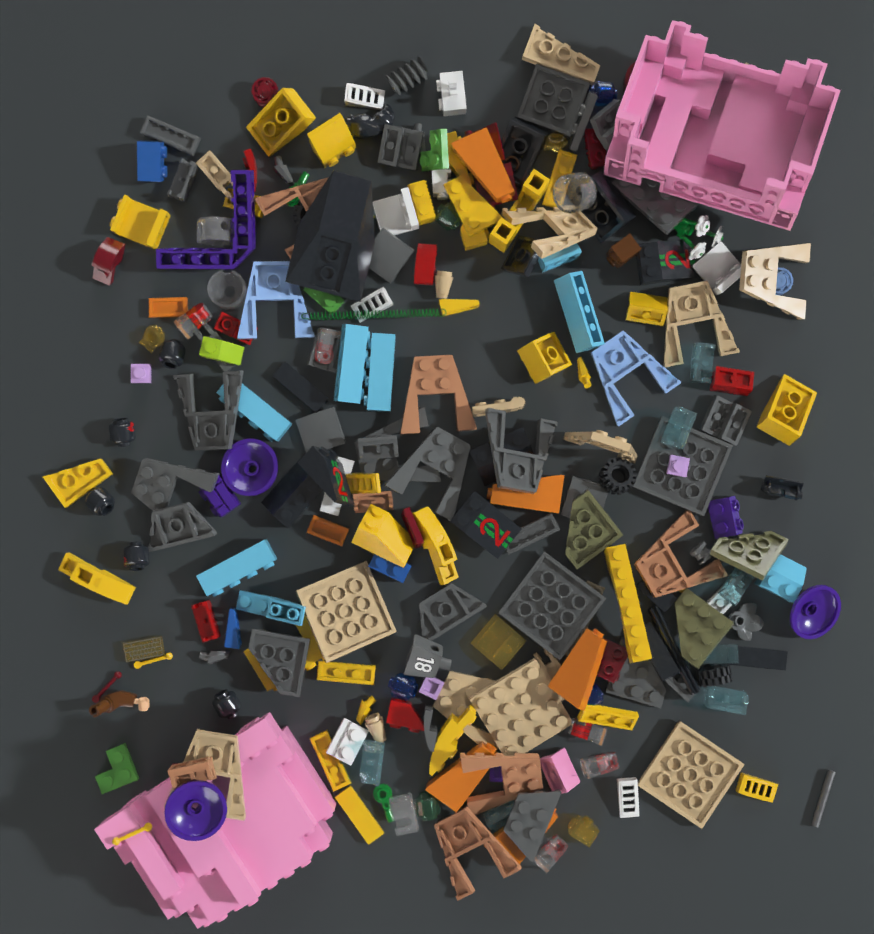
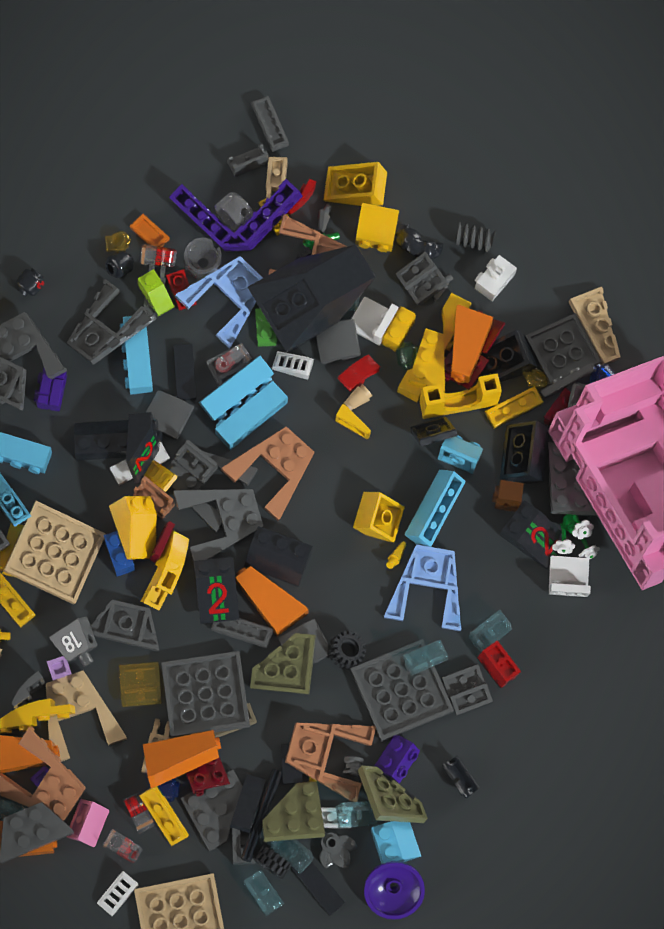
camera: 40 degrees right, 15 degrees down
(106, 259) = (141, 160): dark red brick -> none
(139, 222) = (189, 159): yellow panel -> none
(140, 373) = (84, 257): lavender plate -> none
(151, 161) = (239, 126): blue brick -> none
(238, 463) = (89, 380): dark purple dish -> none
(264, 90) = (365, 153): dark red wheel -> none
(327, 530) = (100, 487): orange tile -> none
(363, 89) = (435, 219): white slope -> none
(375, 314) = (266, 349): green piece -> none
(403, 686) = (39, 647): clear blue head -> none
(404, 714) = (18, 665): red slope -> none
(438, 156) = (438, 307): bright green plate -> none
(439, 178) = (426, 322): white brick -> none
(514, 468) = (278, 569): dark grey wing -> none
(515, 404) = (310, 519): tan hinge -> none
(521, 709) = (106, 748): tan plate -> none
(550, 853) = (19, 875): clear leg -> none
(566, 194) = (511, 423): clear piece -> none
(570, 227) = (486, 436): tan wing -> none
(583, 829) = (60, 882): clear yellow brick -> none
(602, 440) = (365, 613): tan wing -> none
(631, 615) = (260, 745): yellow arch -> none
(647, 308) = (487, 554): yellow panel -> none
(678, 466) = (398, 684): lavender plate -> none
(690, 305) = (522, 582): tan wing -> none
(760, 276) = (591, 605): tan wing -> none
(784, 281) = (603, 627): medium blue wheel -> none
(787, 410) = (519, 724): yellow slope -> none

